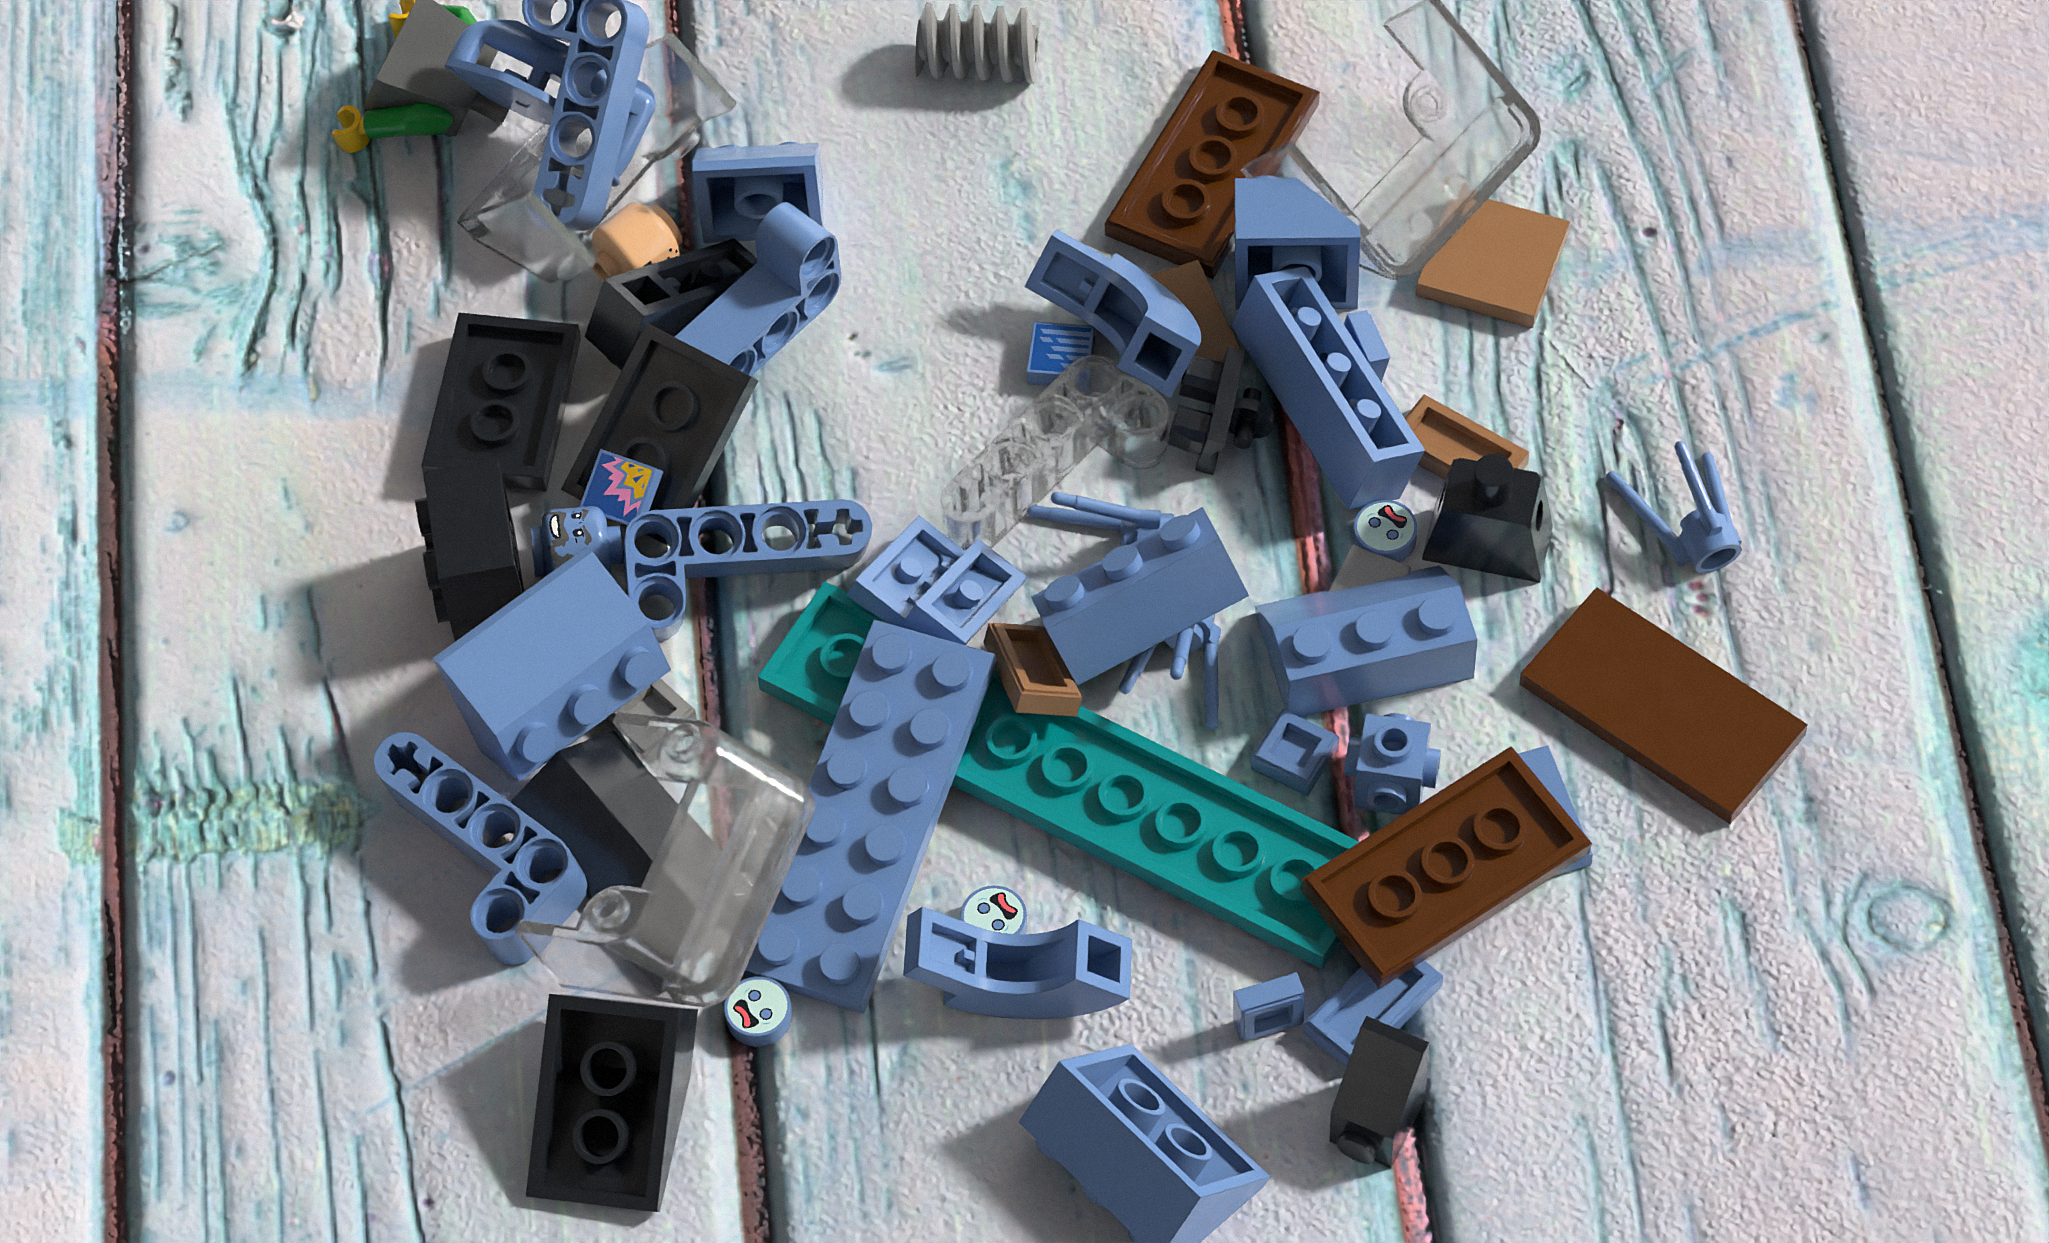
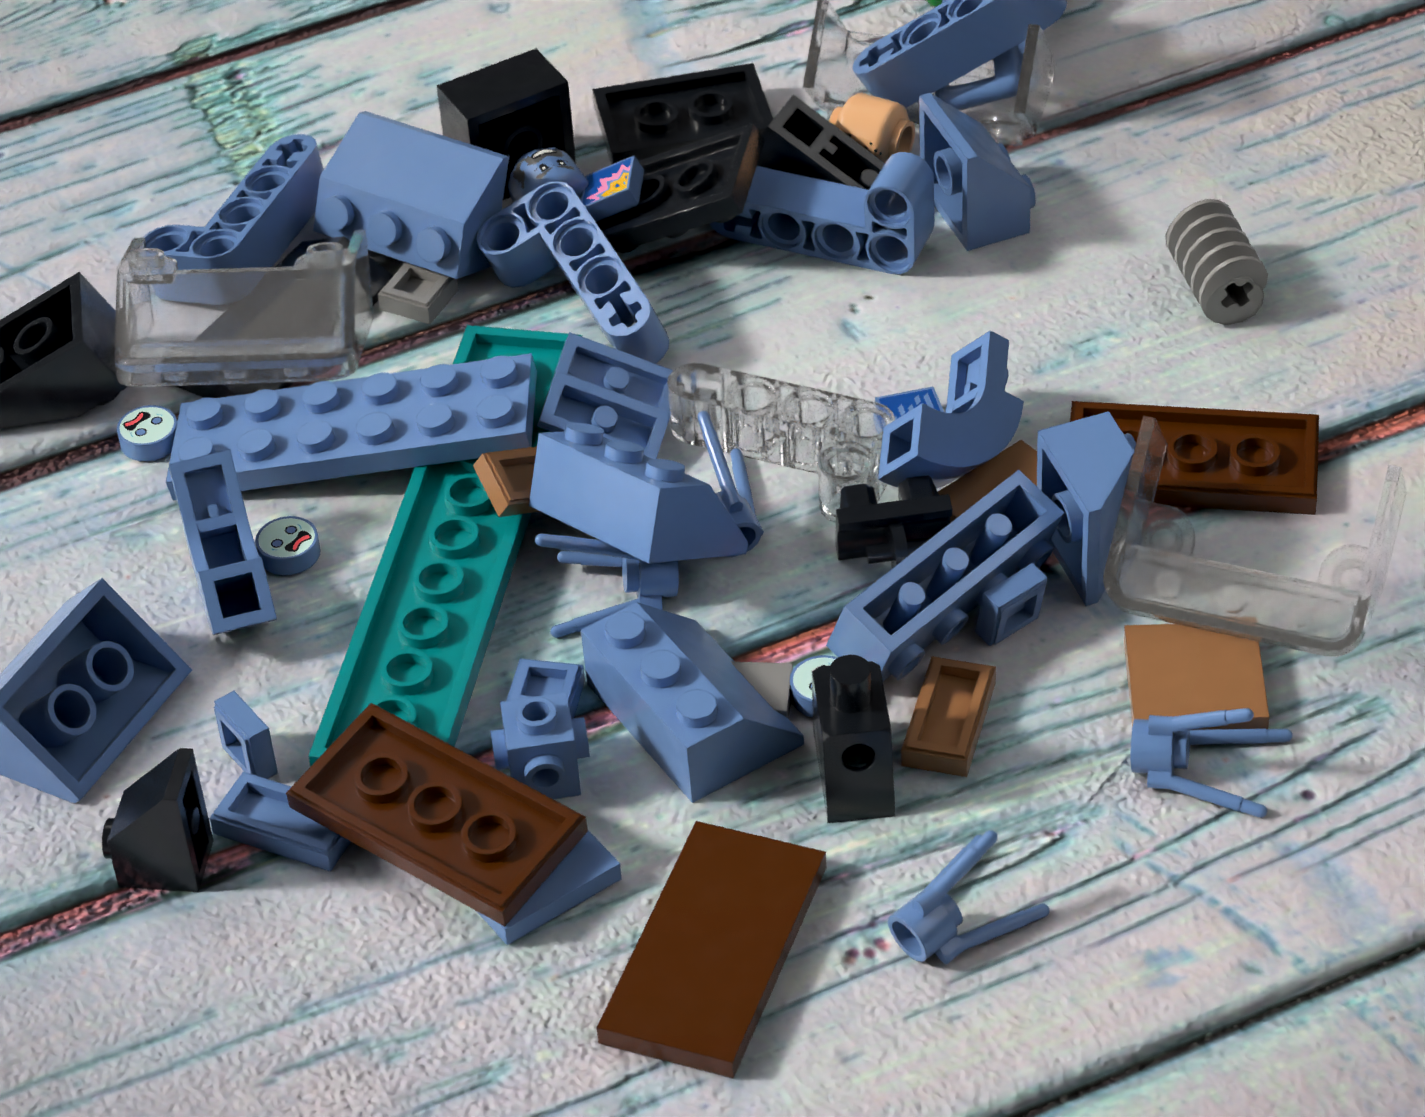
camera: 70 degrees right, 15 degrees down
(1575, 307) = (1165, 743): none -> medium blue plant

